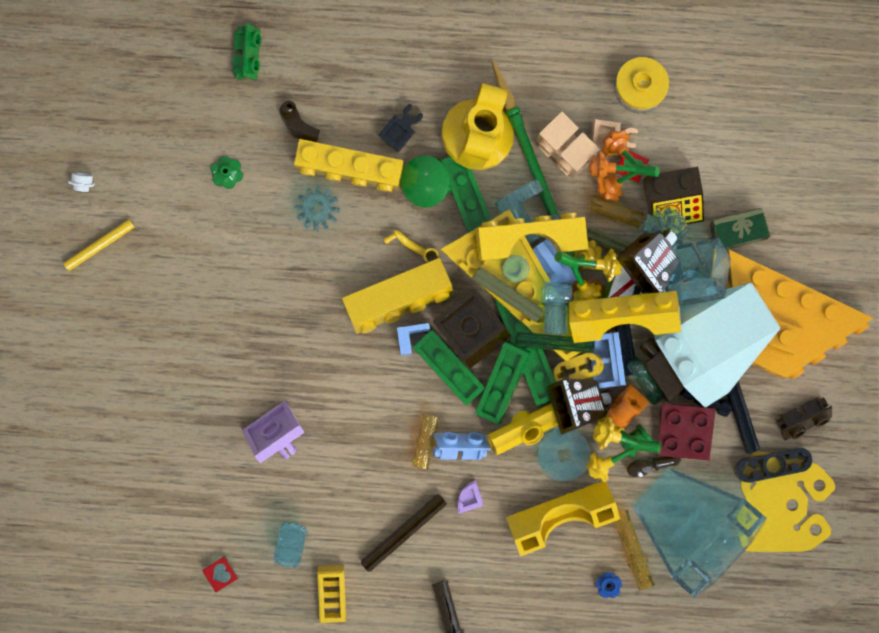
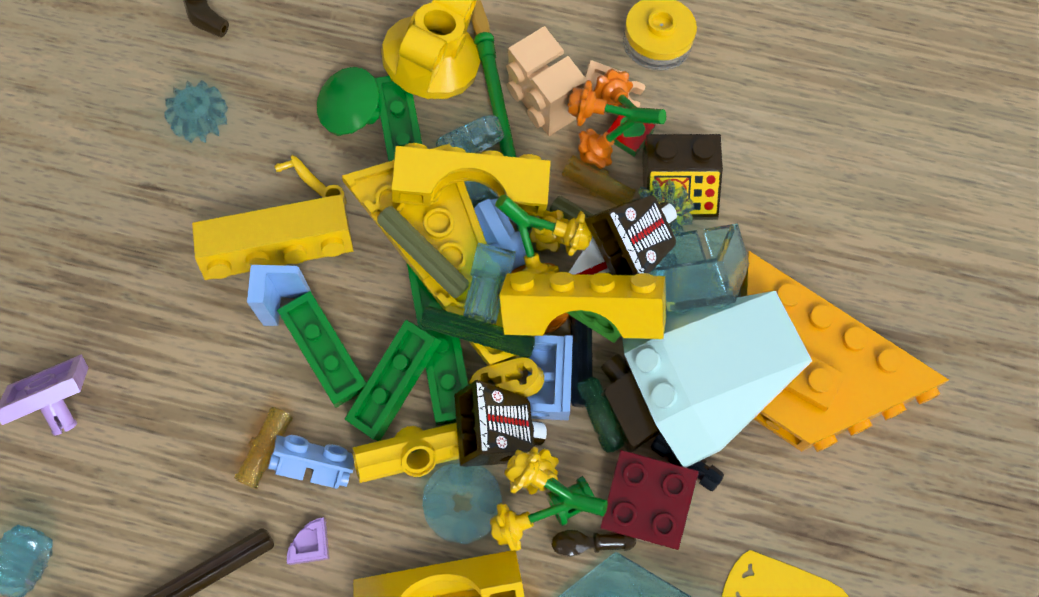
camera: 10 degrees right, 15 degrees down
(230, 178) = (95, 54): green plant -> none
(348, 164) = (251, 63): yellow brick -> none
(398, 131) = (330, 38): black plate -> none
(472, 328) = (364, 296): dark brown container -> none
(515, 269) = (441, 221): clear light blue tile -> none
(627, 406) = (568, 446): orange piece -> none
(741, 229) = (772, 230): dark green piece -> none
(743, 419) = (737, 497): black axle -> none
(793, 468) = (803, 563): black beam -> none
(815, 415) = (847, 509): dark brown hinge -> none

